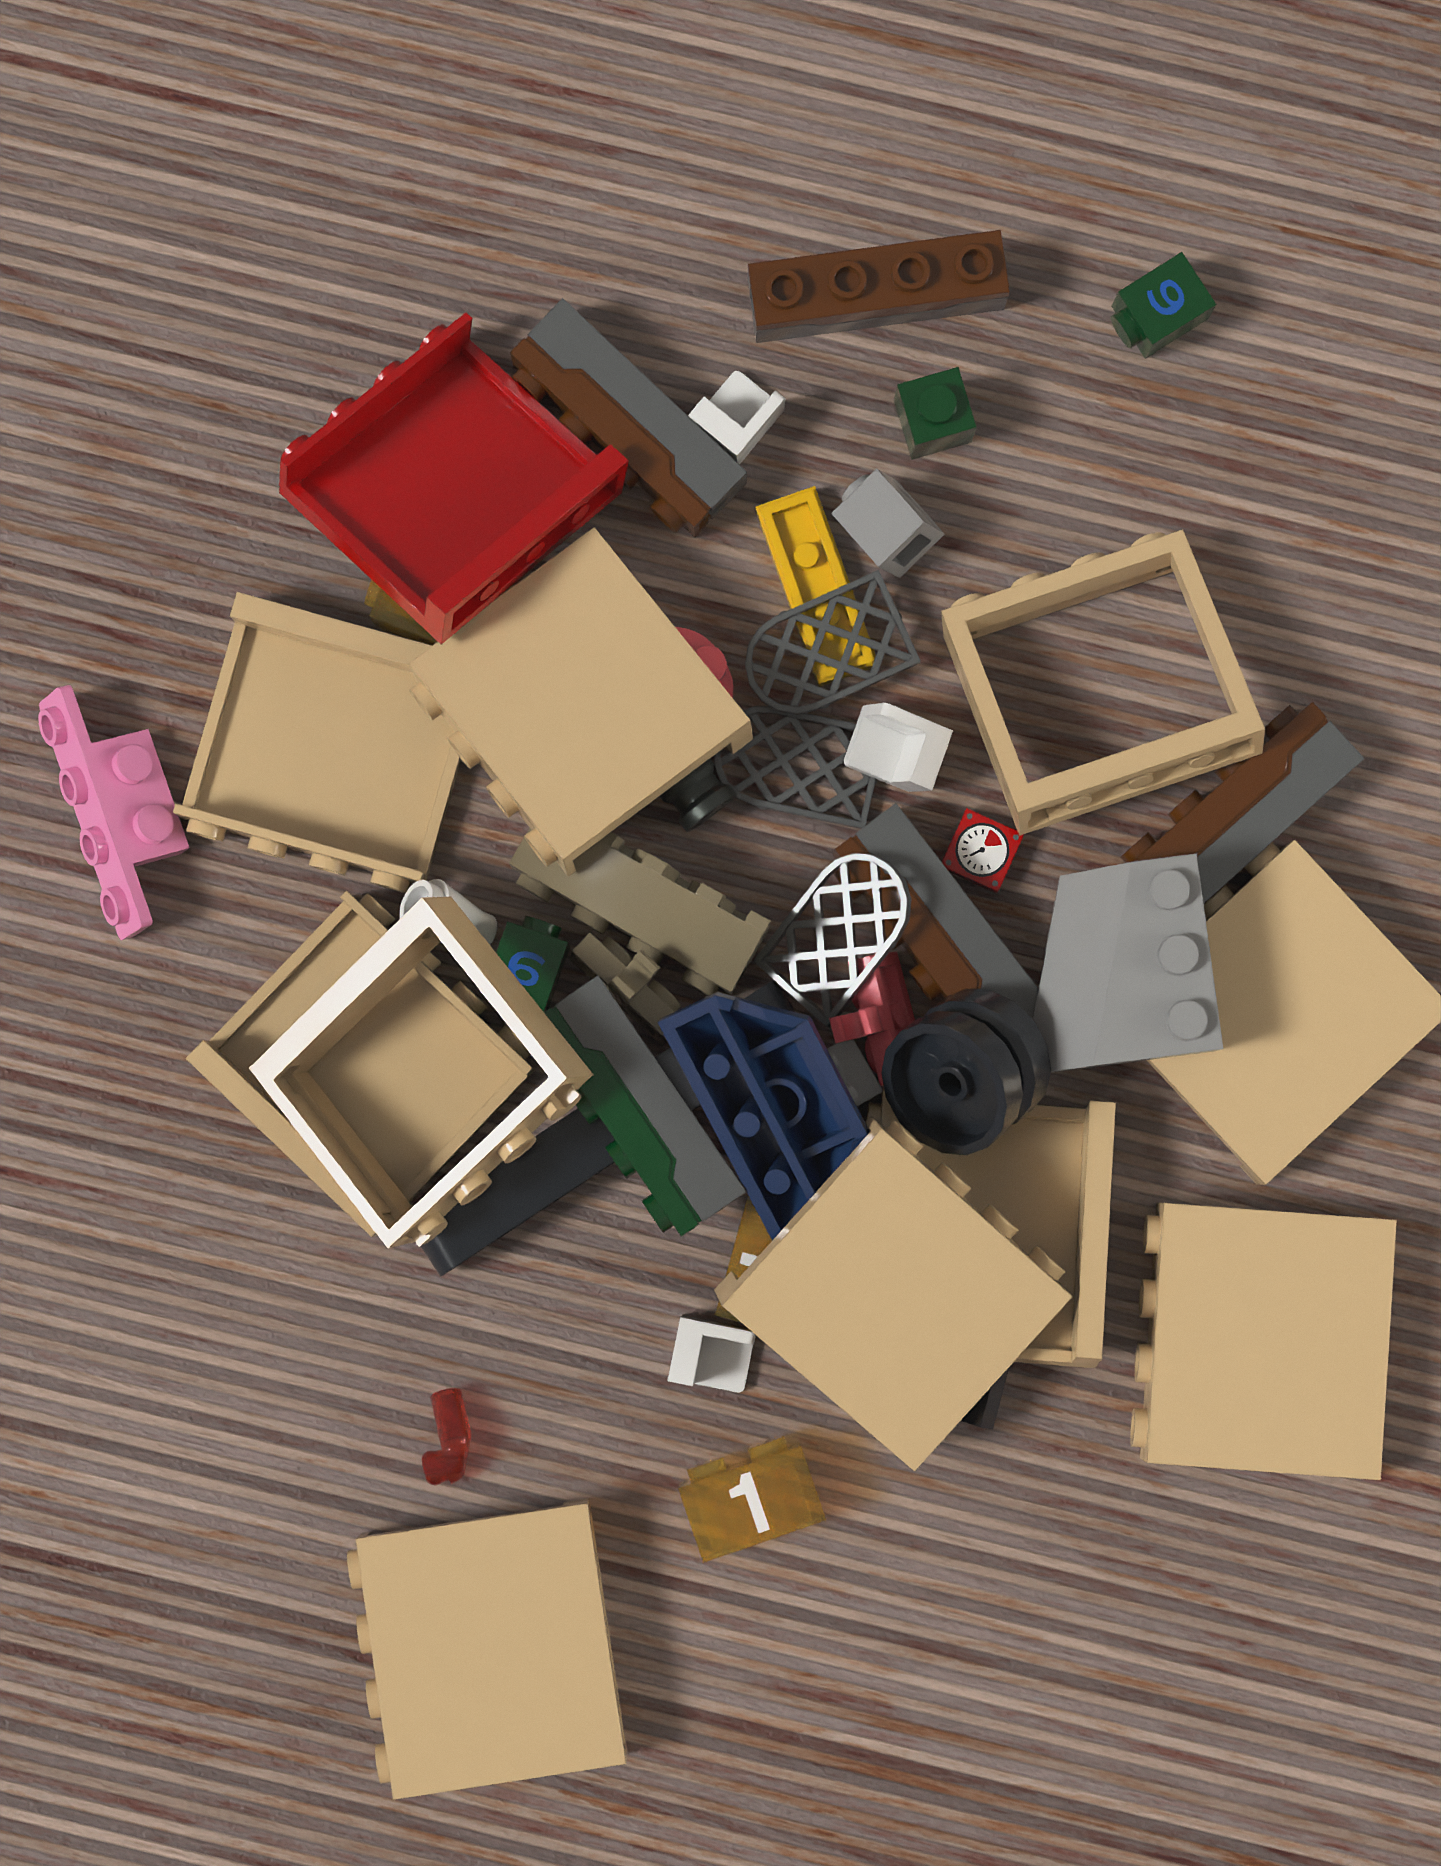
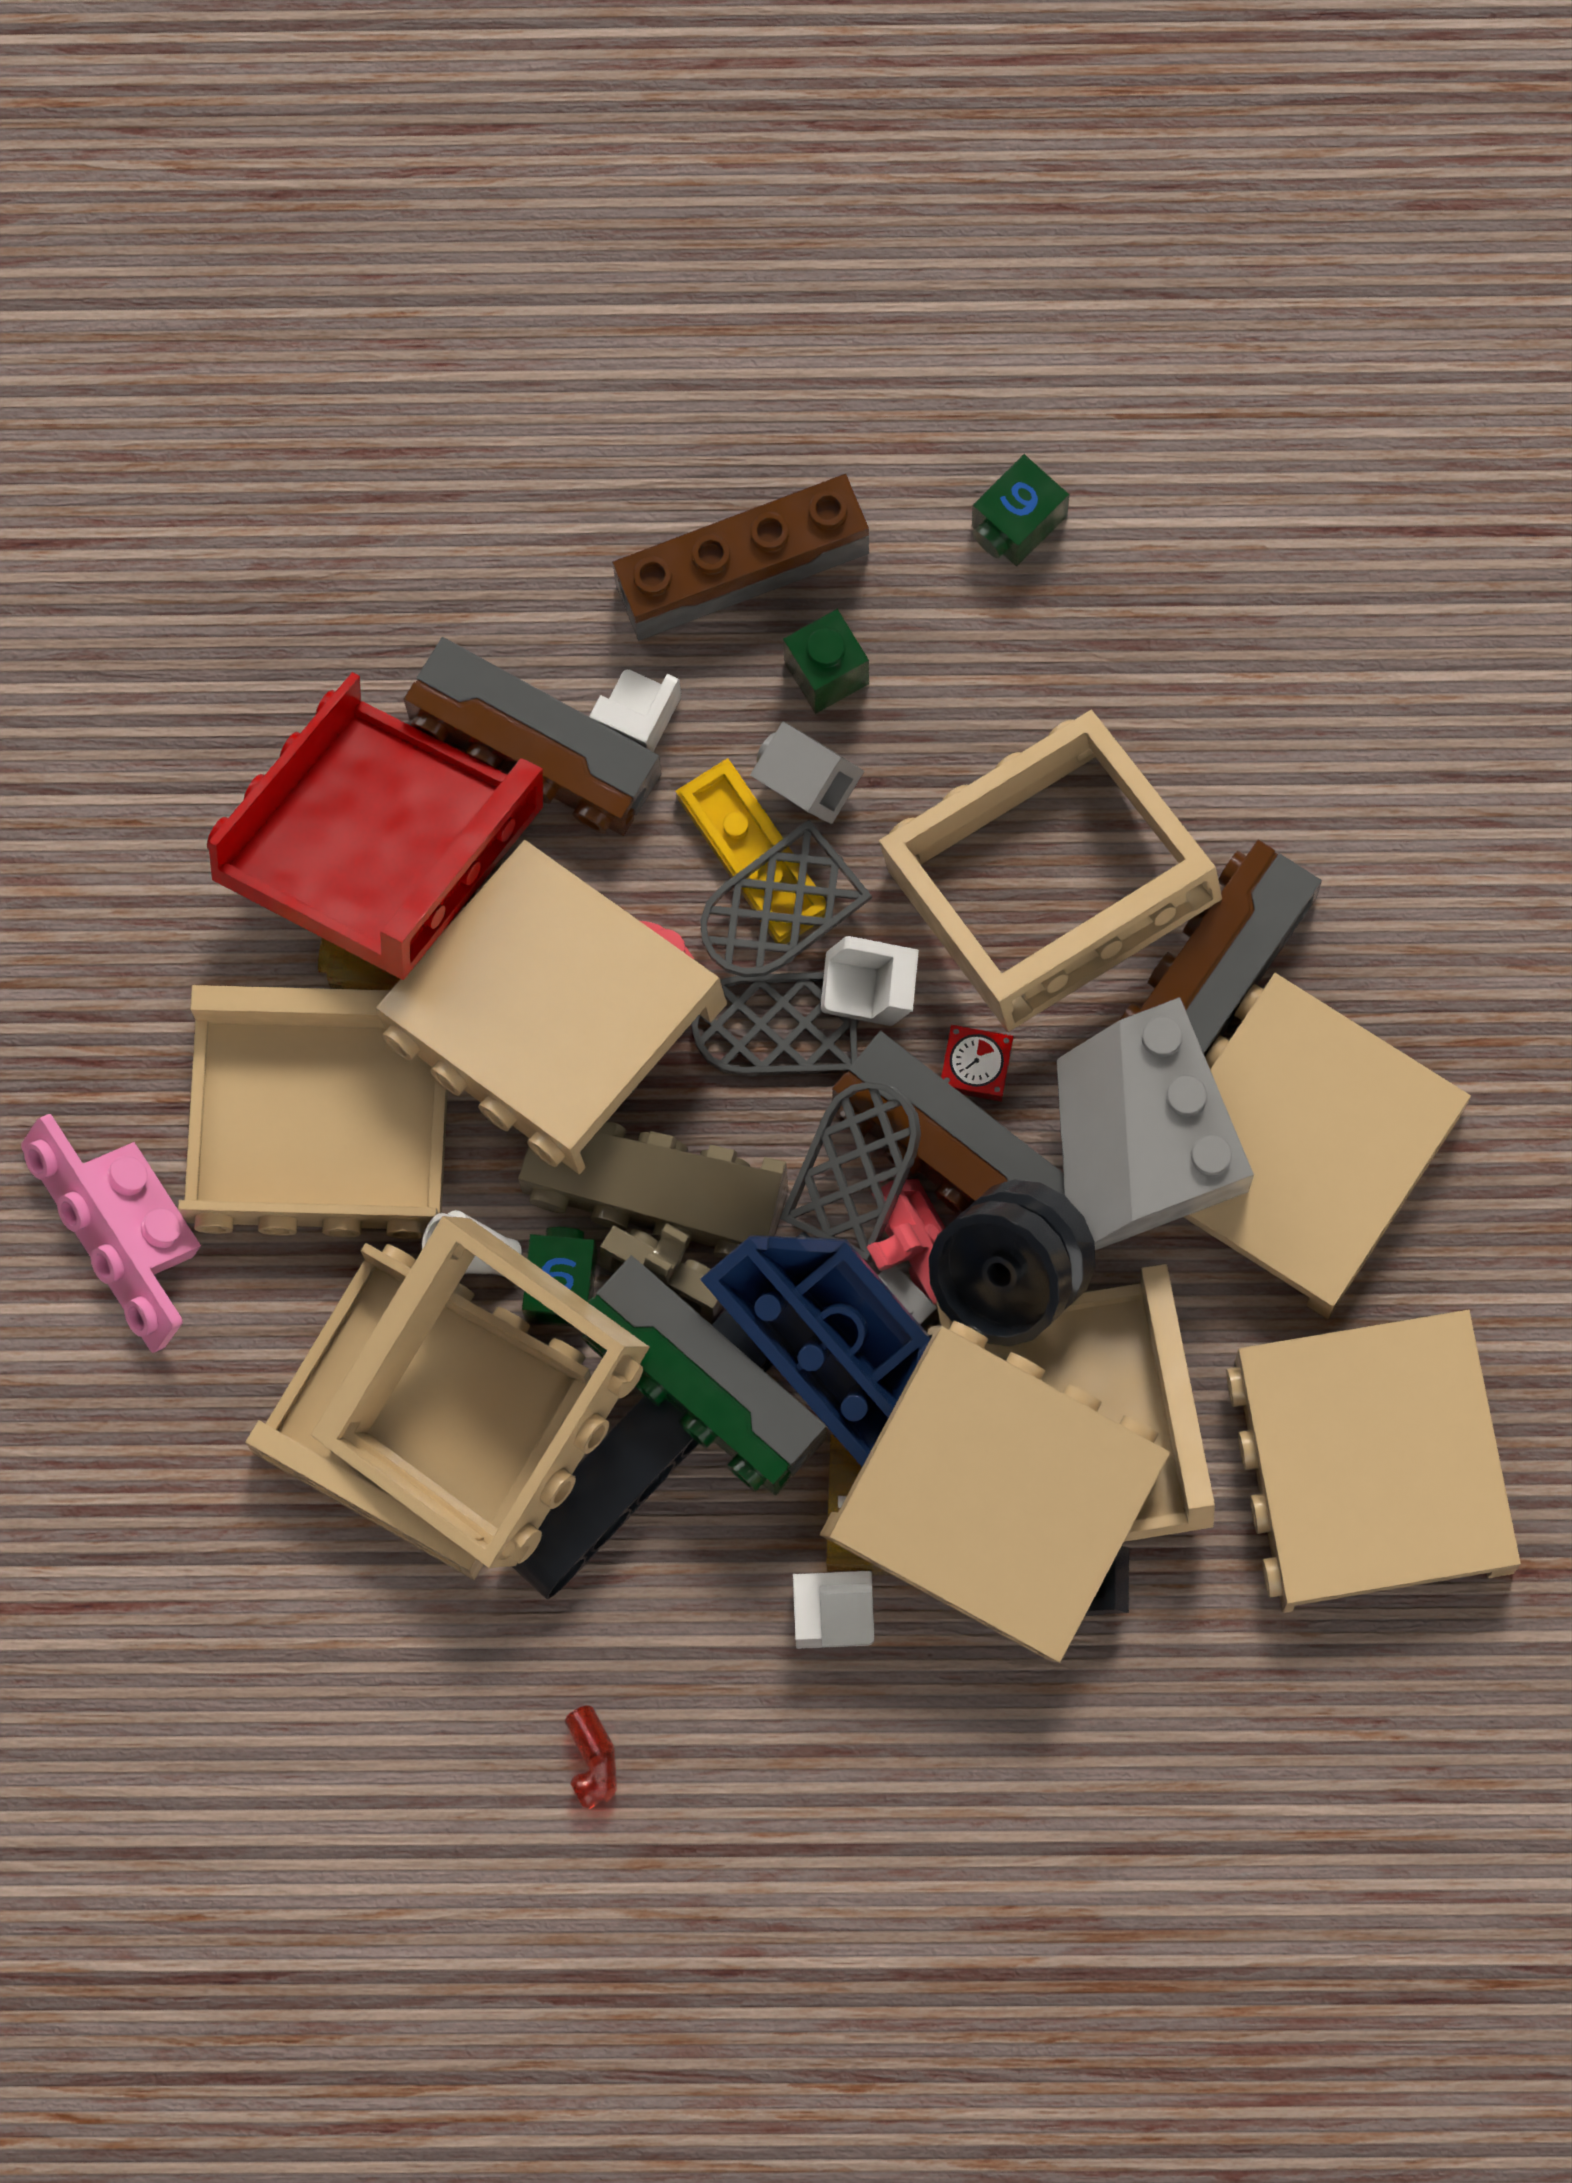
camera: 10 degrees left, 10 degrees down
(488, 1650) = (681, 1952): tan panel -> none
(699, 796) = (685, 1073): pearl dark grey wheel -> none
(750, 1499) = (906, 1740): clear yellow brick -> none

